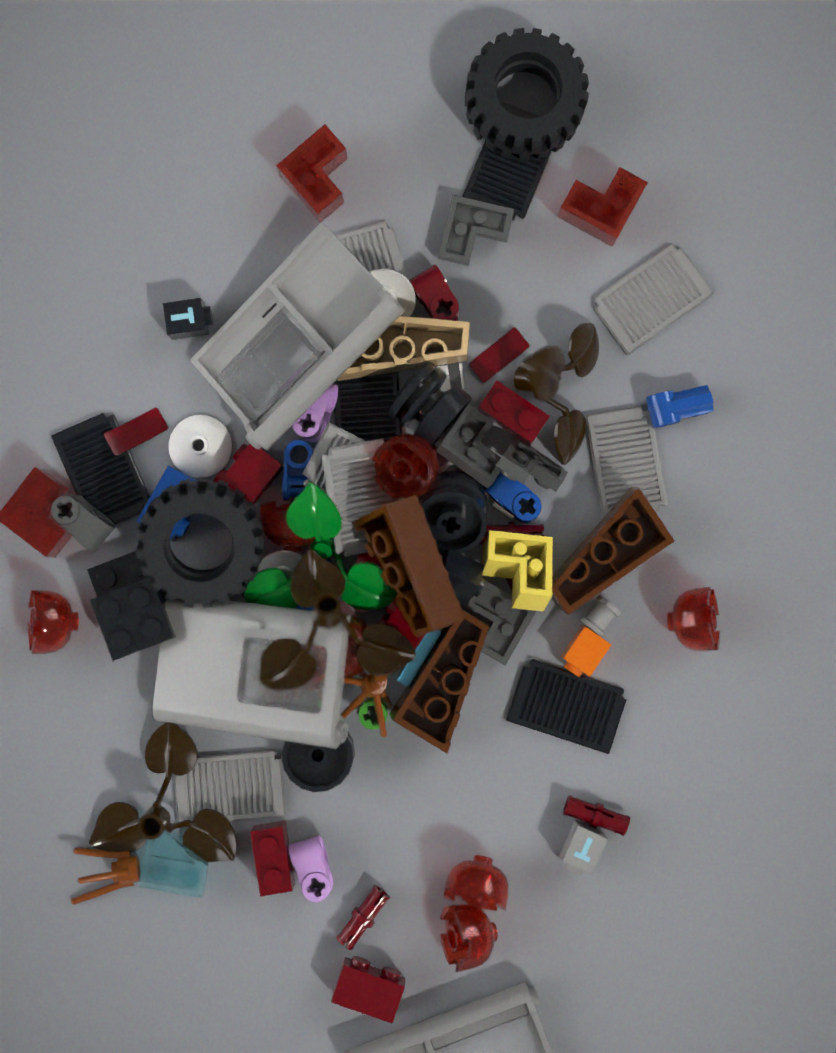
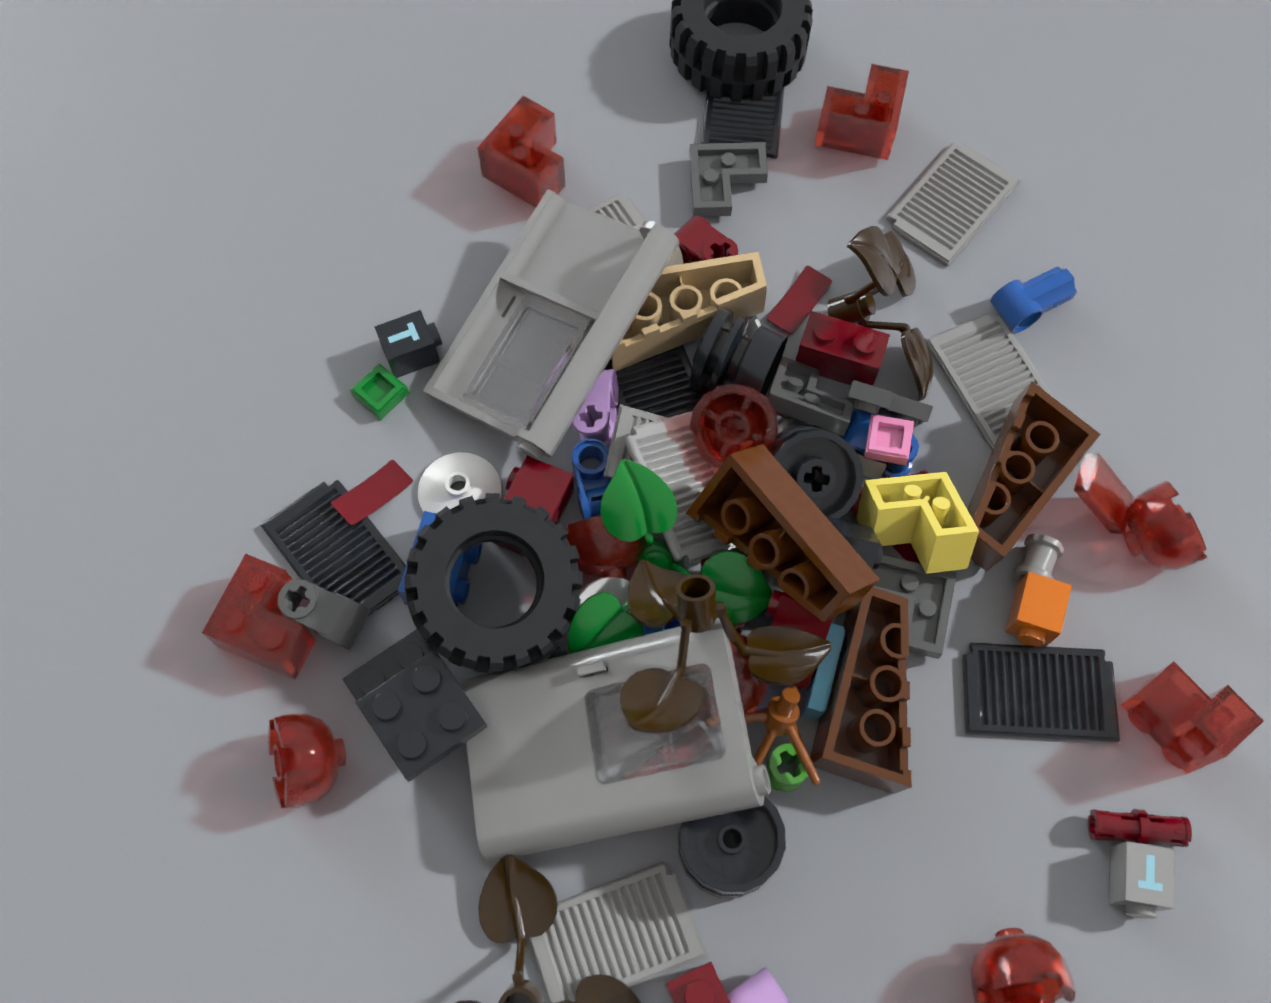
camera: 15 degrees left, 20 degrees down
(158, 349) = (379, 391): none -> green tile
(519, 501) = (888, 439): none -> bright pink tile
(658, 761) = (1188, 722): none -> clear red brick
(663, 581) = (1103, 493): none -> clear red tile

